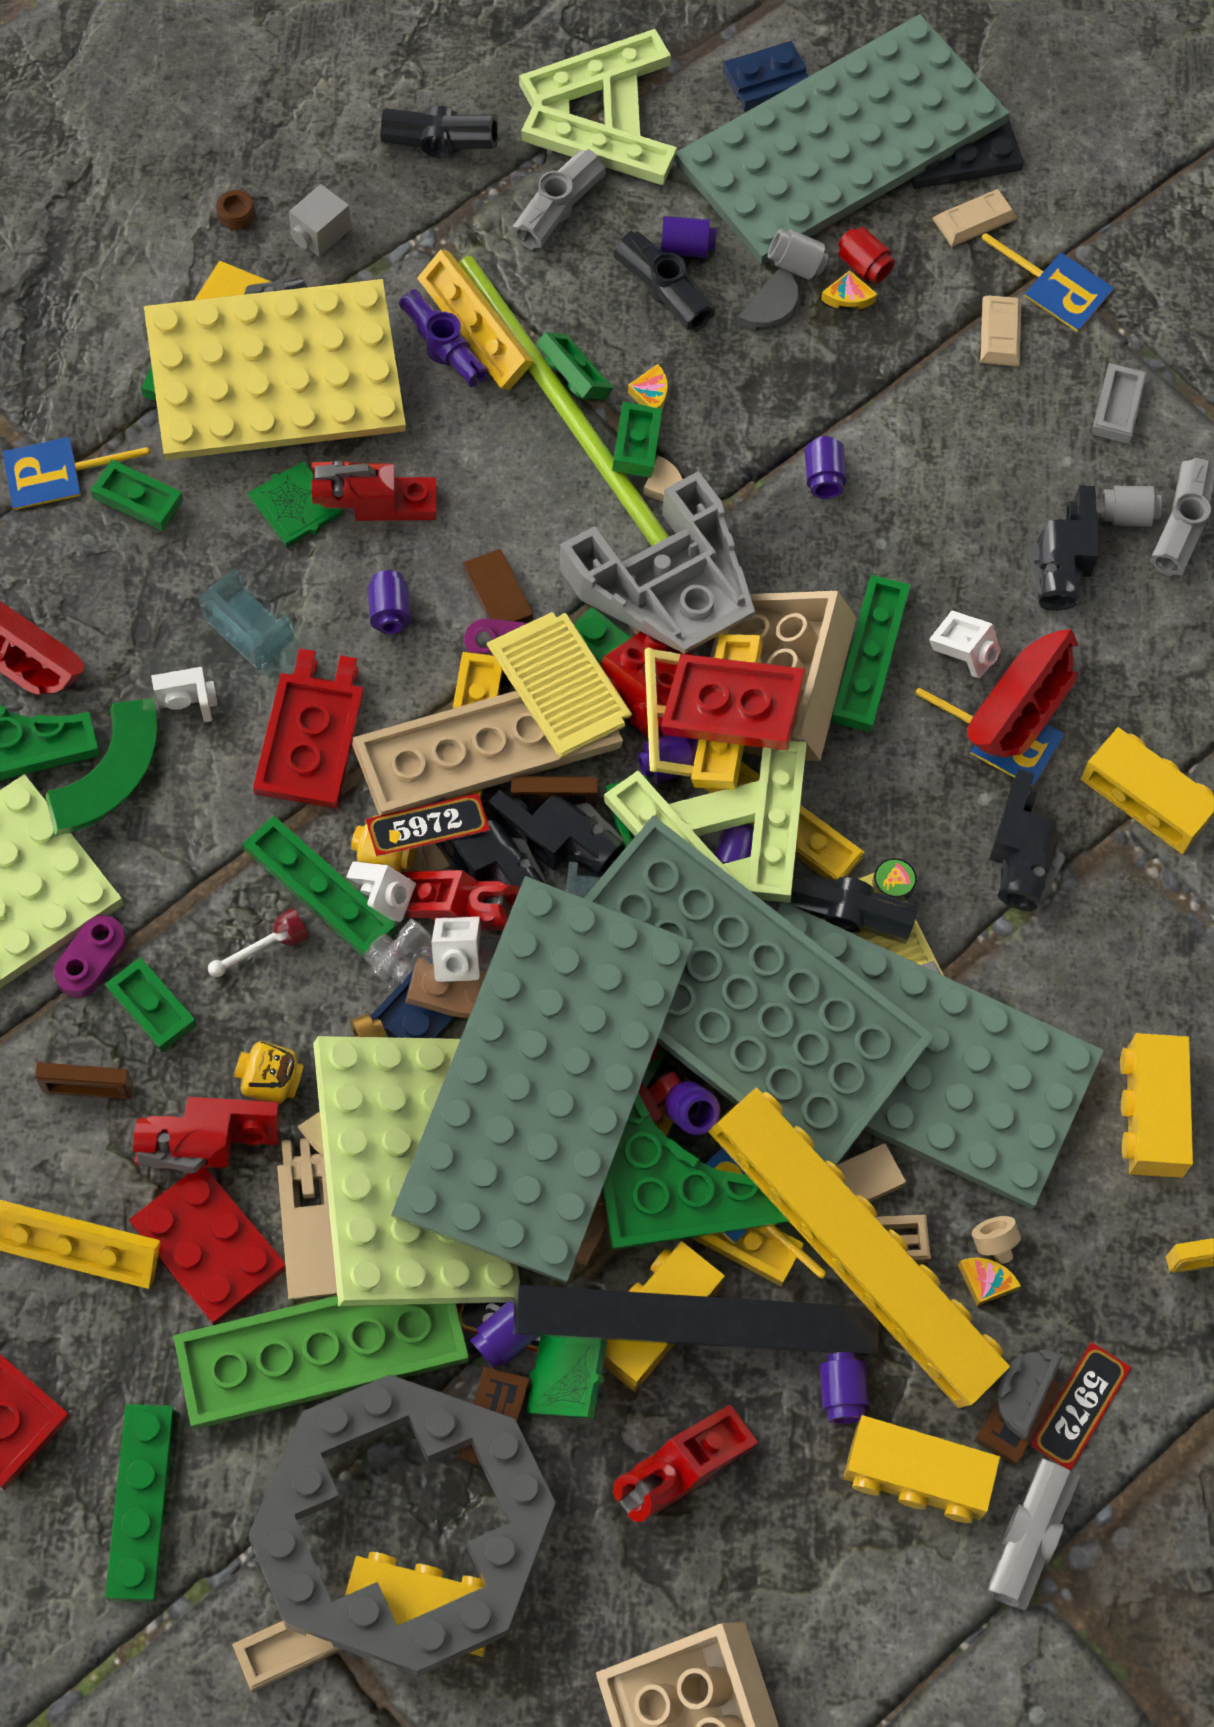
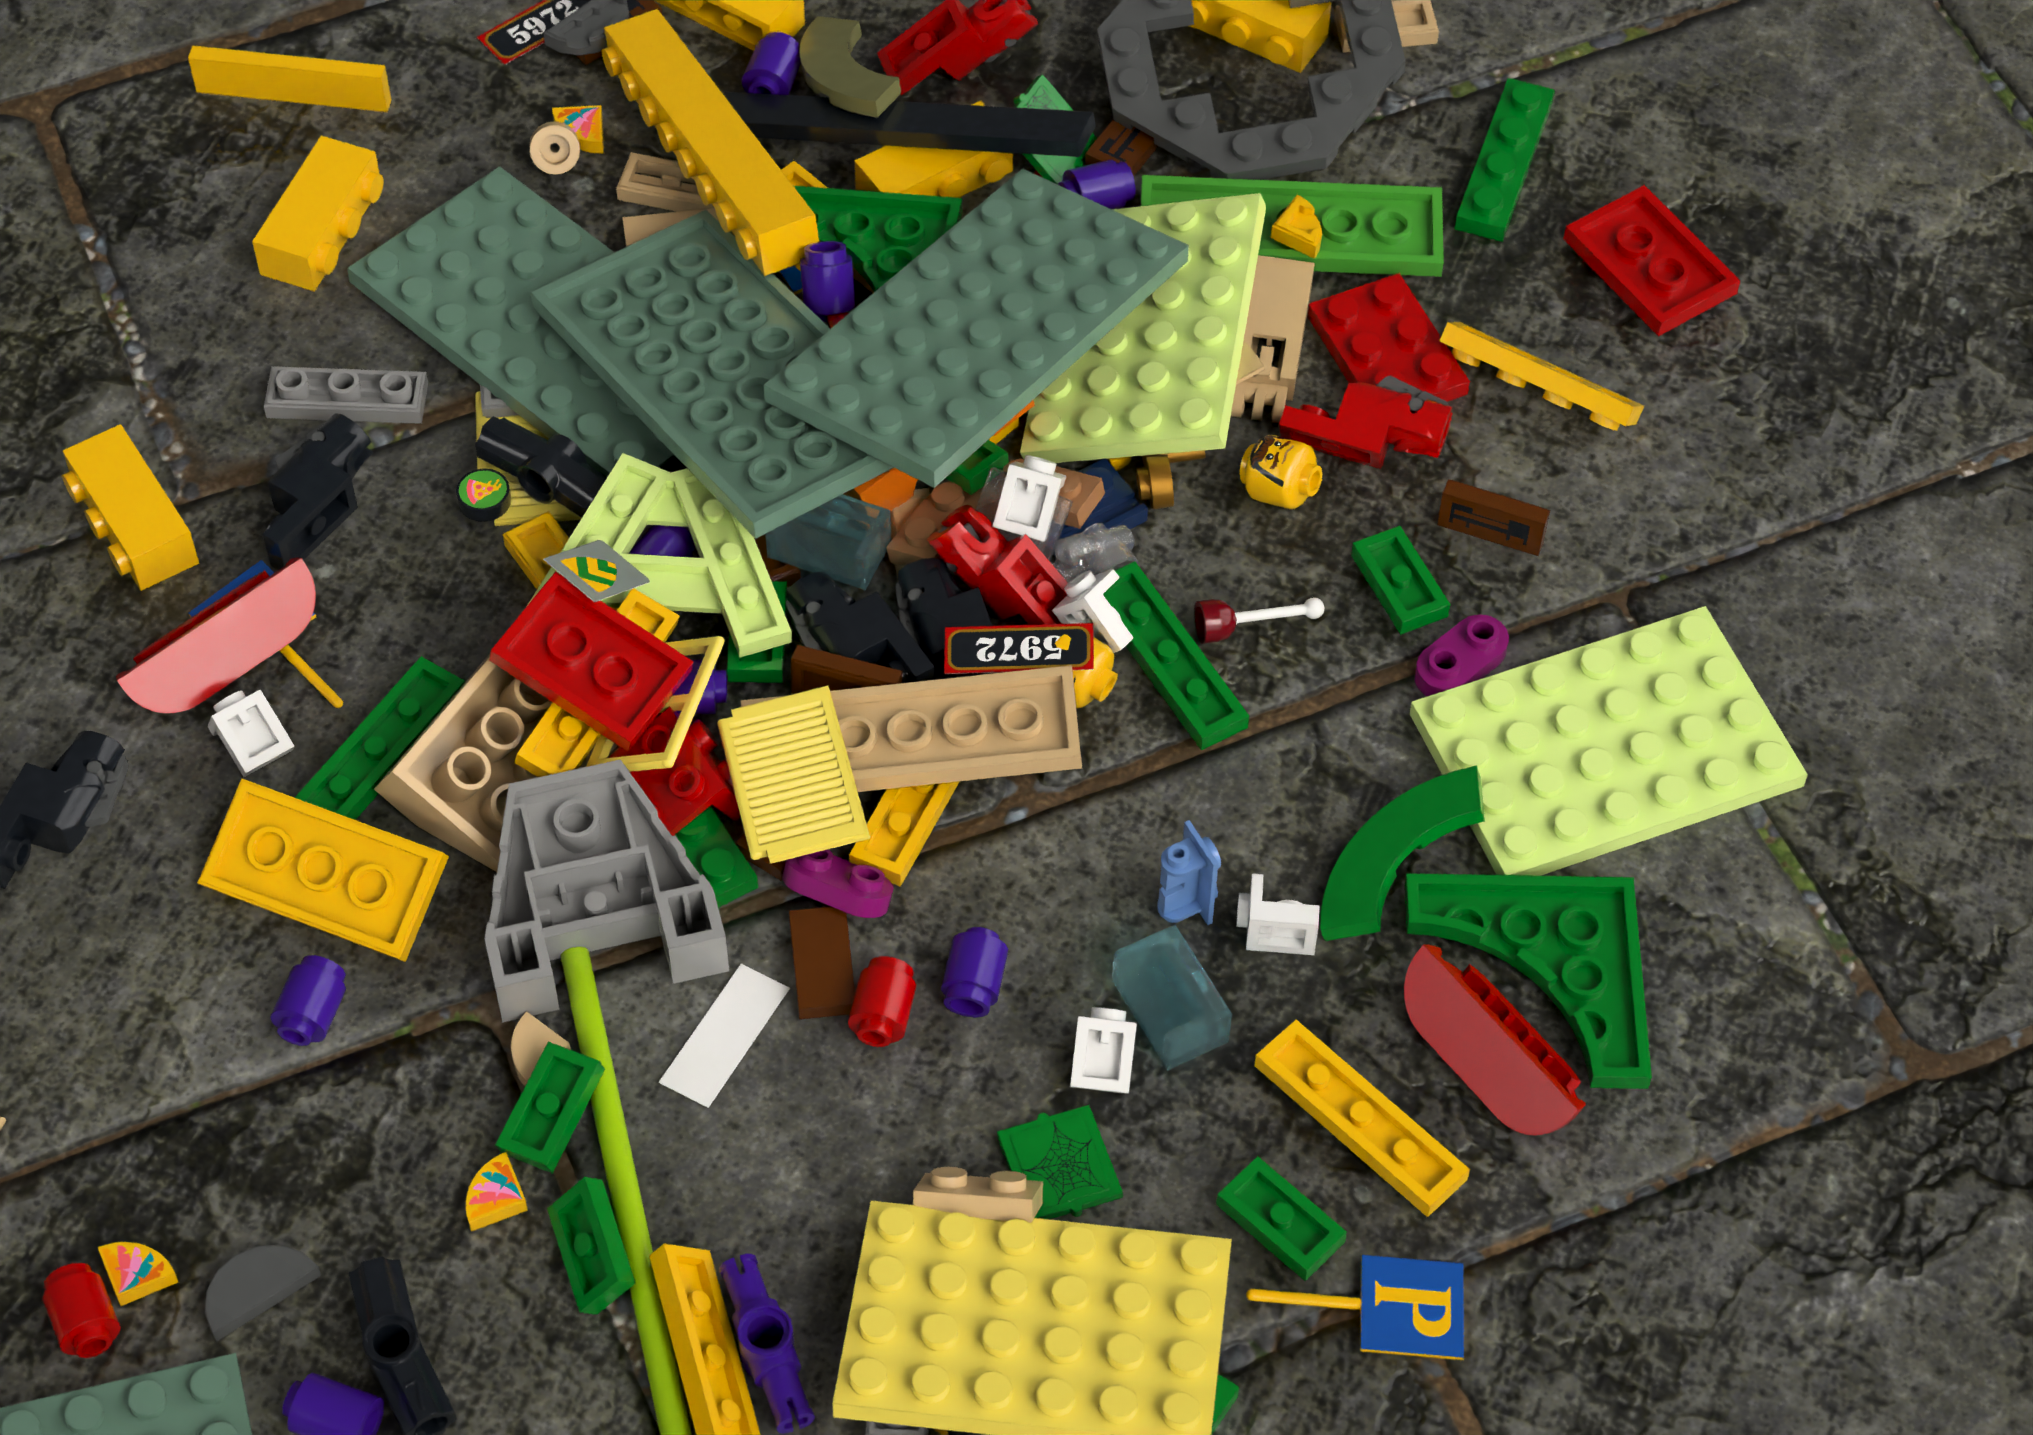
camera: 160 degrees left, 10 degrees down
(97, 574) = (1362, 1118): none -> yellow plate
(252, 685) = (1189, 878): none -> medium blue hinge
(284, 575) = (1103, 1051): none -> white bracket
(309, 1328) = (1299, 227): none -> yellow tile
(310, 733) = (1118, 839): red tile -> none
(330, 445) = (997, 1197): none -> tan plate
(373, 491) = (945, 1126): red plate -> none
(444, 564) = (882, 1001): none -> red brick
(546, 532) = (724, 1035): none -> white sticker
(761, 771) = (597, 570): none -> light grey sticker
(787, 1382) = (833, 71): none -> olive tile
(798, 253) = (183, 1330): light grey brick -> none
(862, 553) = (323, 869): none -> yellow tile
(1024, 955) = (351, 392): none -> light grey tile

